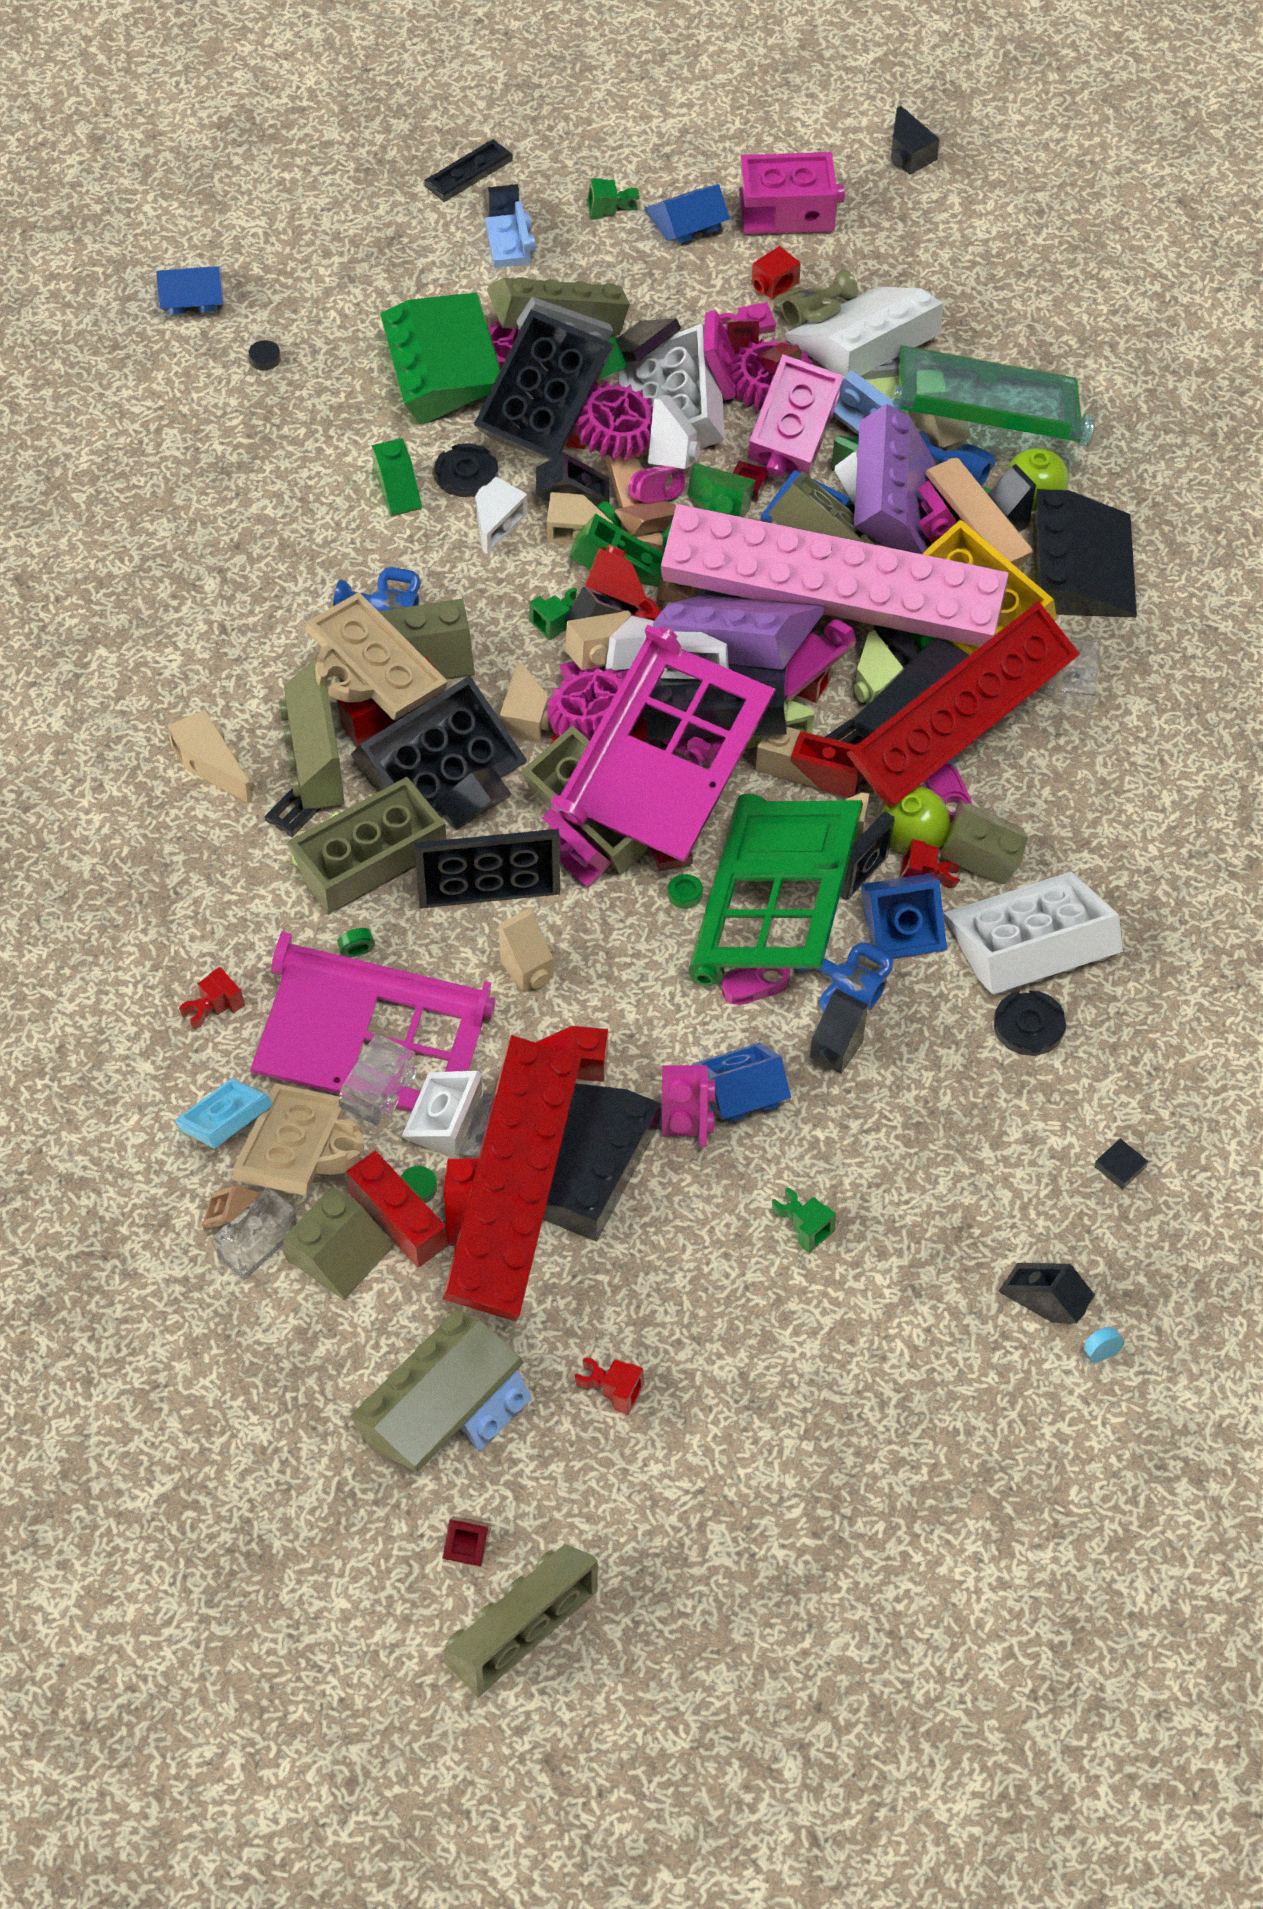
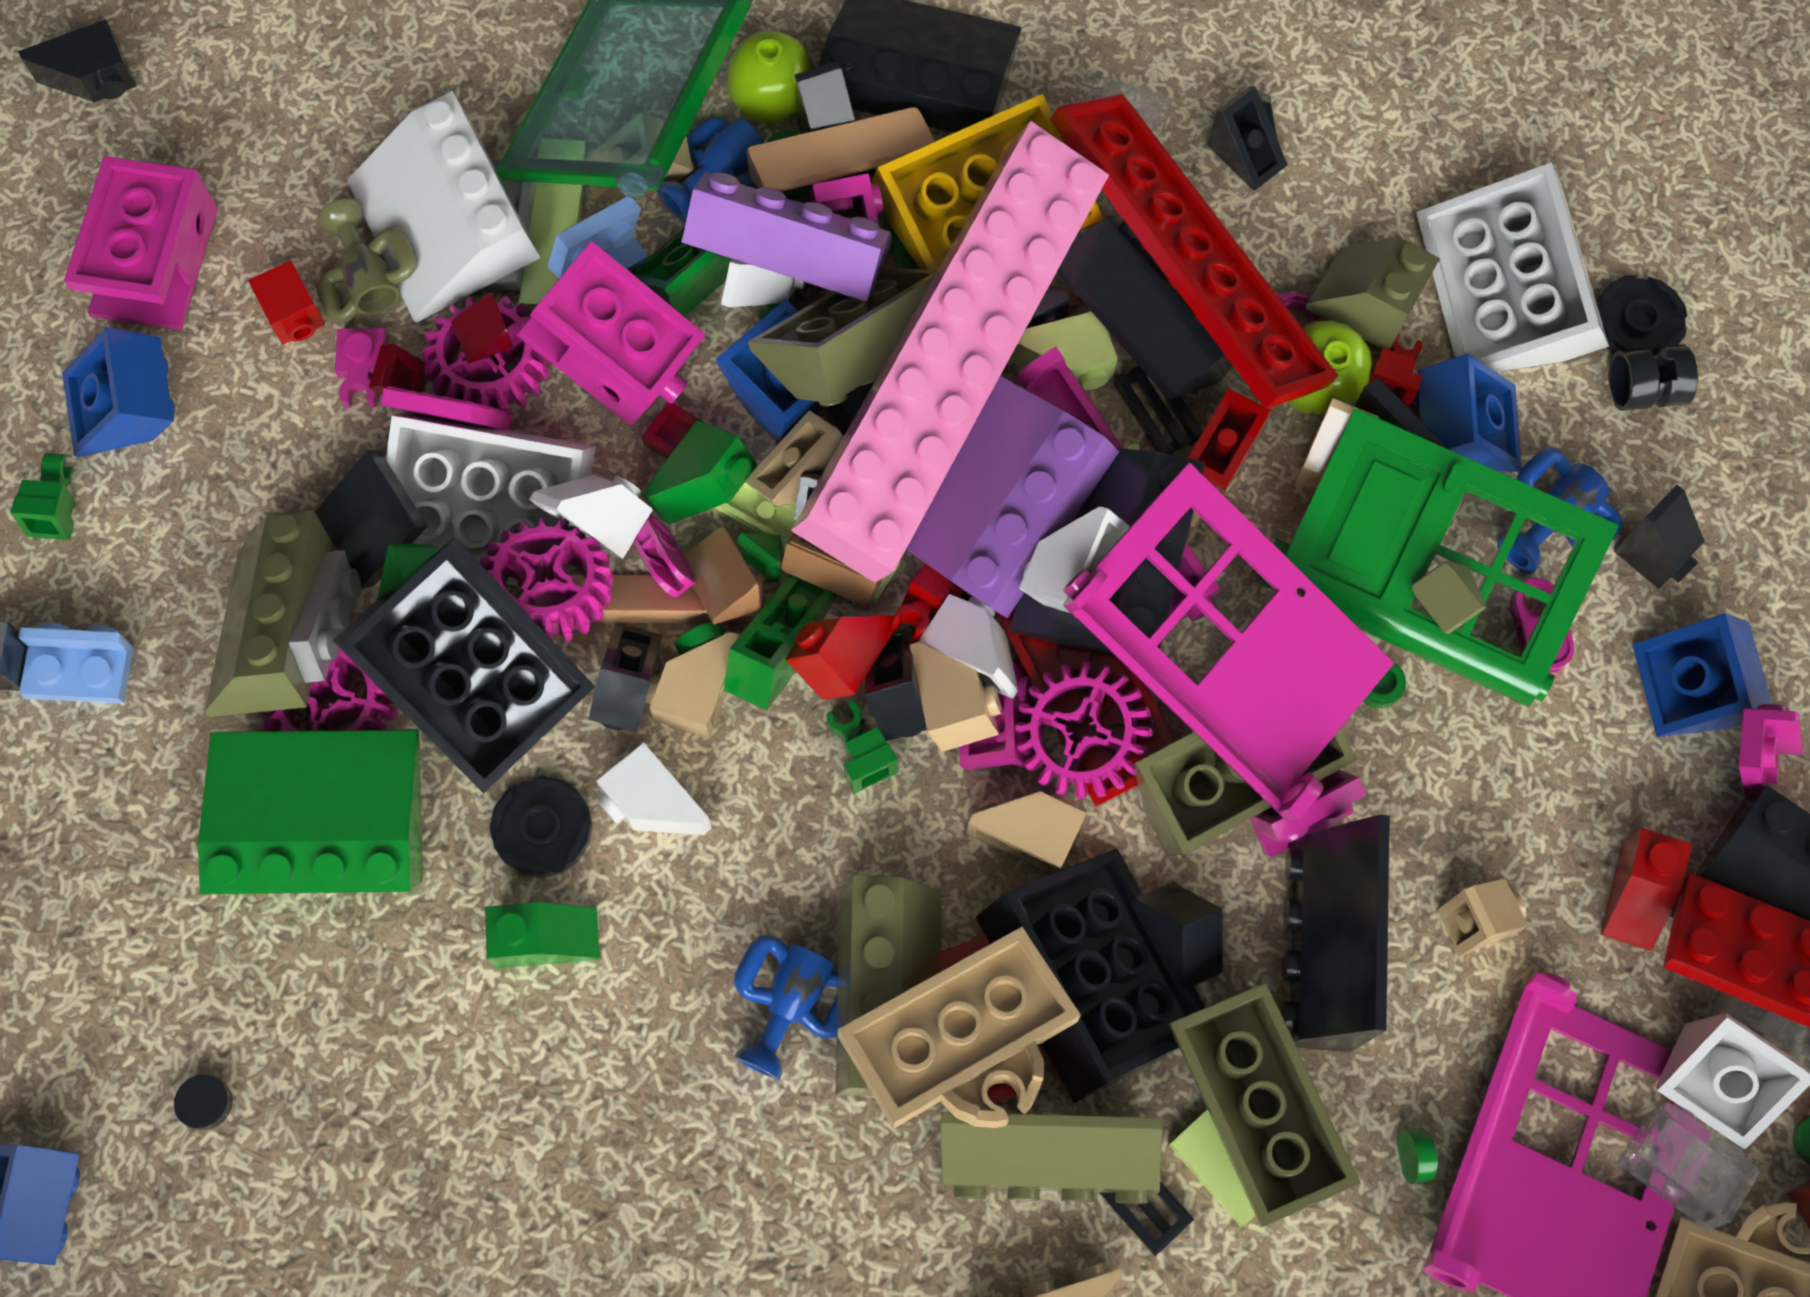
camera: 80 degrees left, 15 degrees up
(746, 885) = (1449, 595): none -> olive slope
(973, 1021) = (1657, 377): none -> black wheel
(1095, 754) = (1247, 138): none -> black slope

